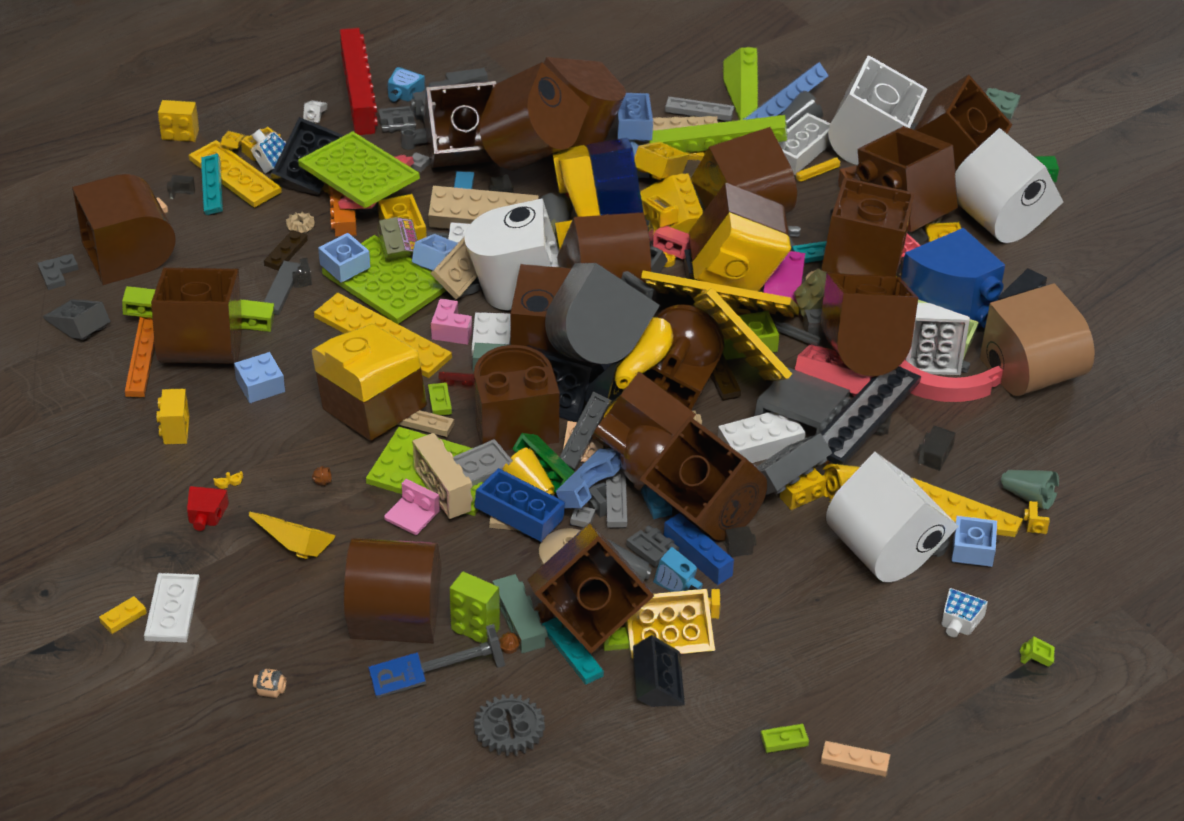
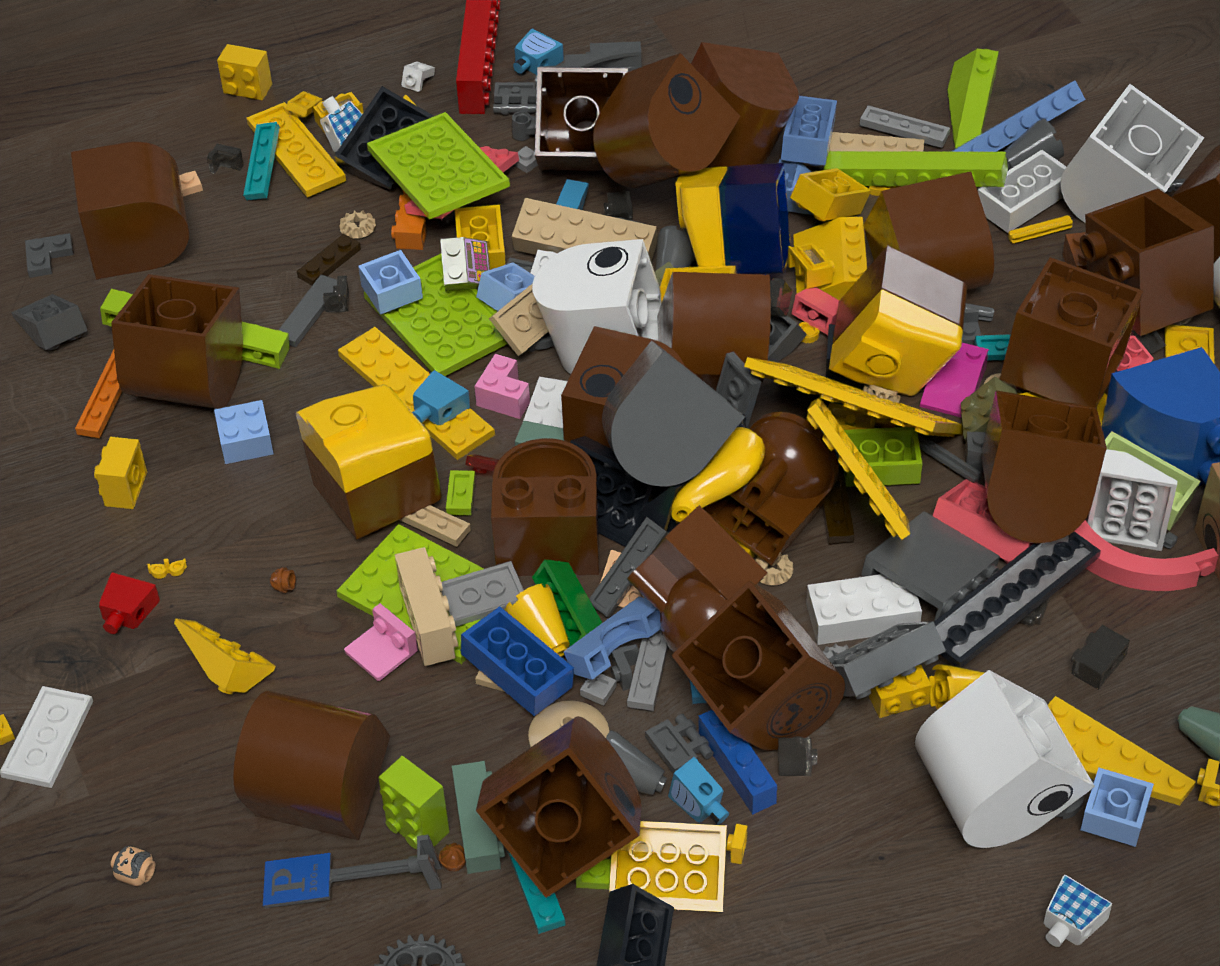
camera: 15 degrees right, 5 degrees up
(410, 331) = (439, 399): none -> dark azure torso

